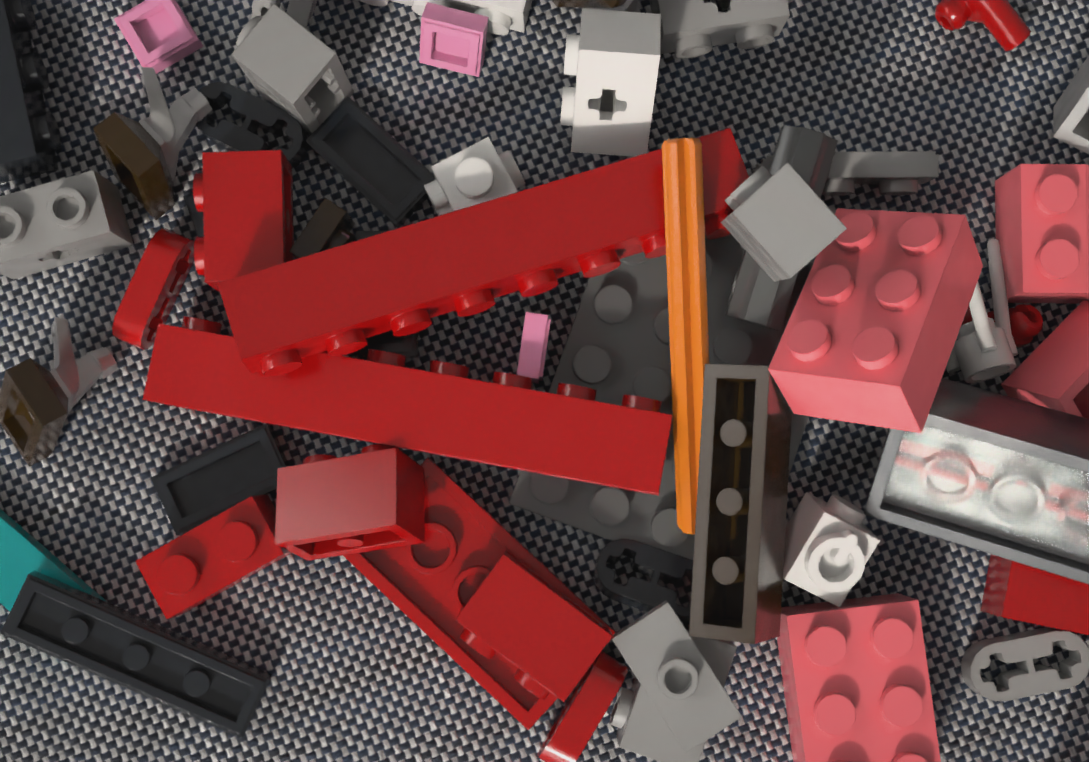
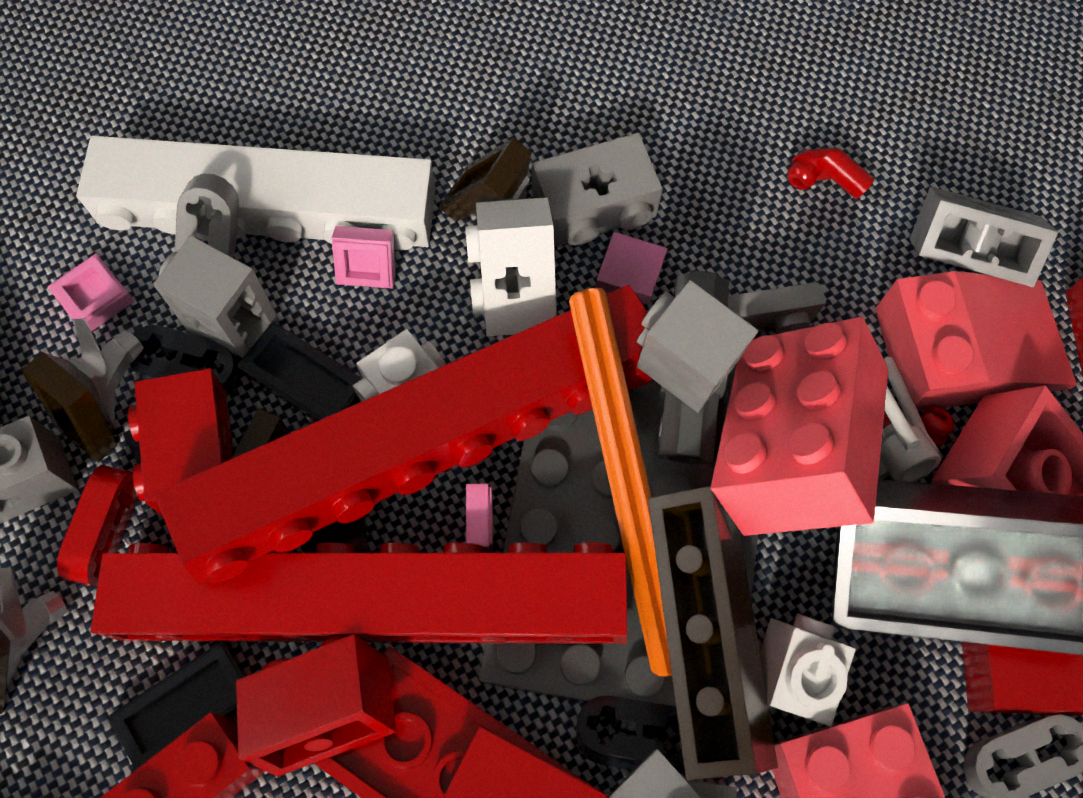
camera: 10 degrees left, 15 degrees down
(739, 94) = (631, 263): none -> bright pink tile

